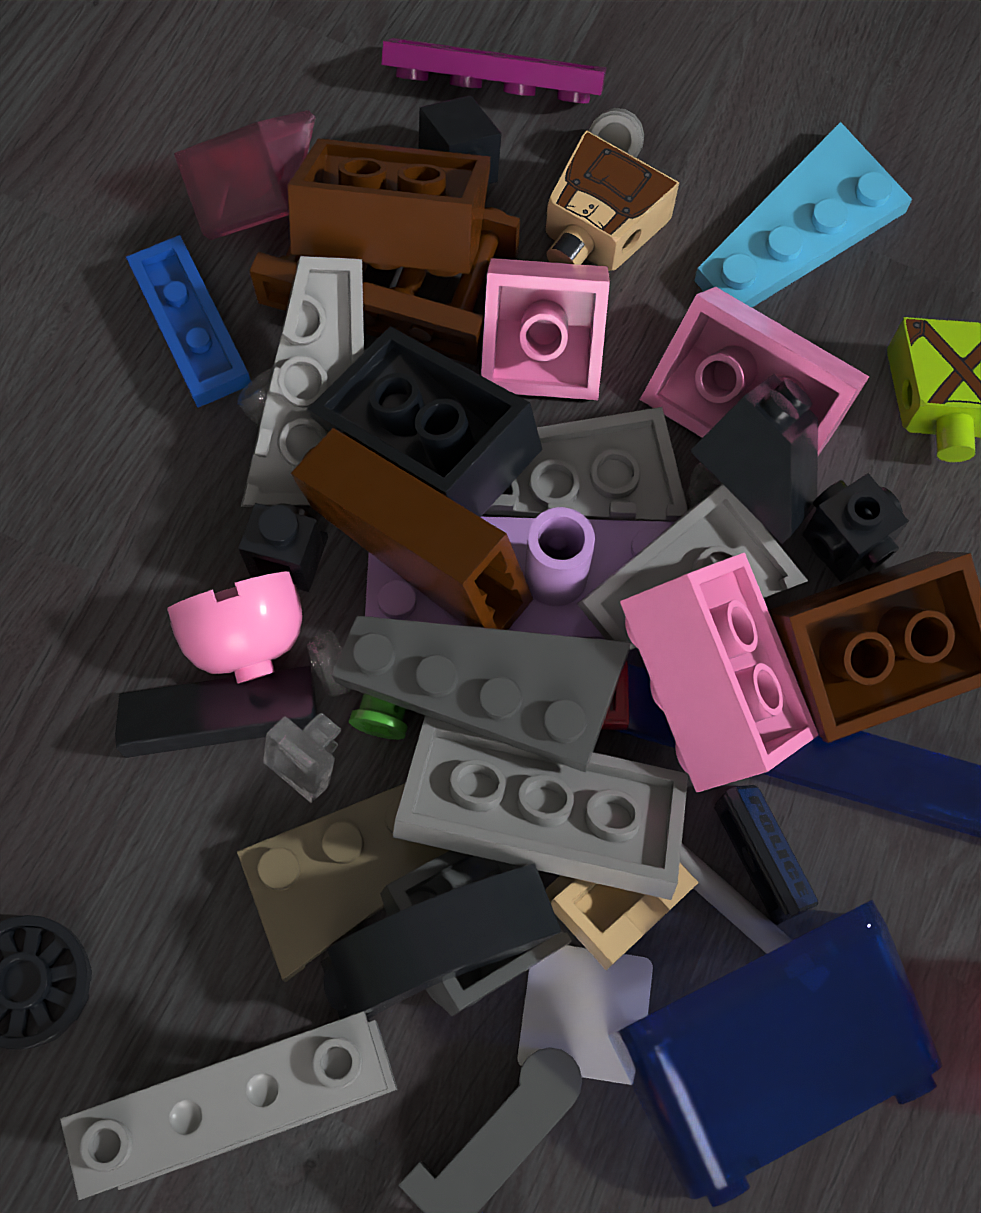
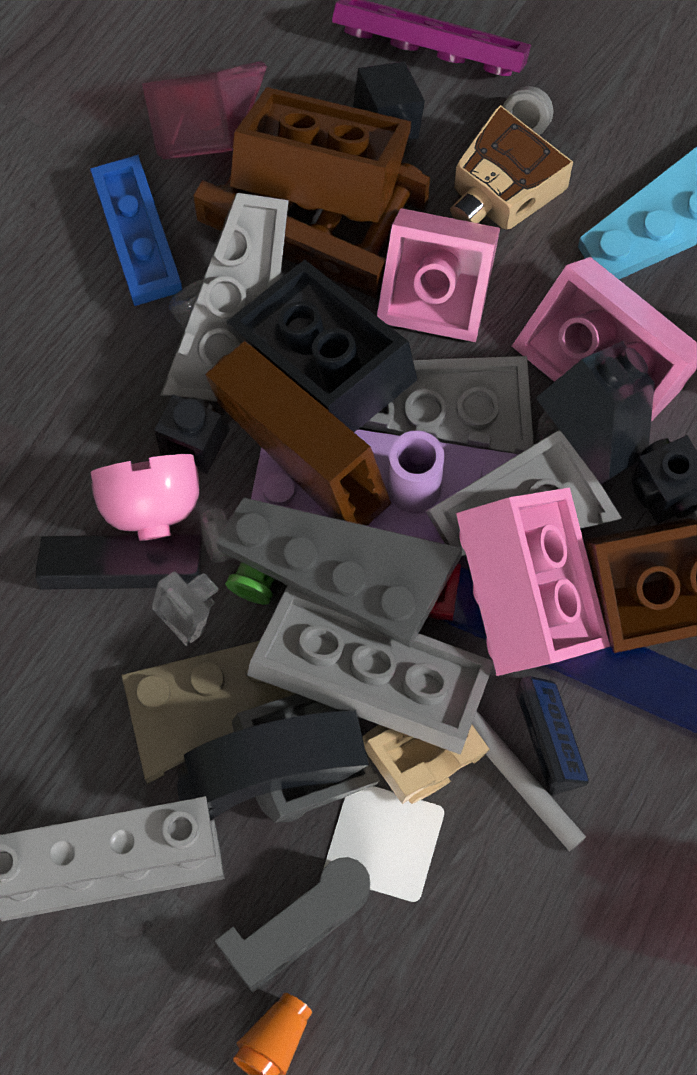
camera: 10 degrees right, 0 degrees up
(779, 1053) = (529, 882): clear blue windscreen -> none

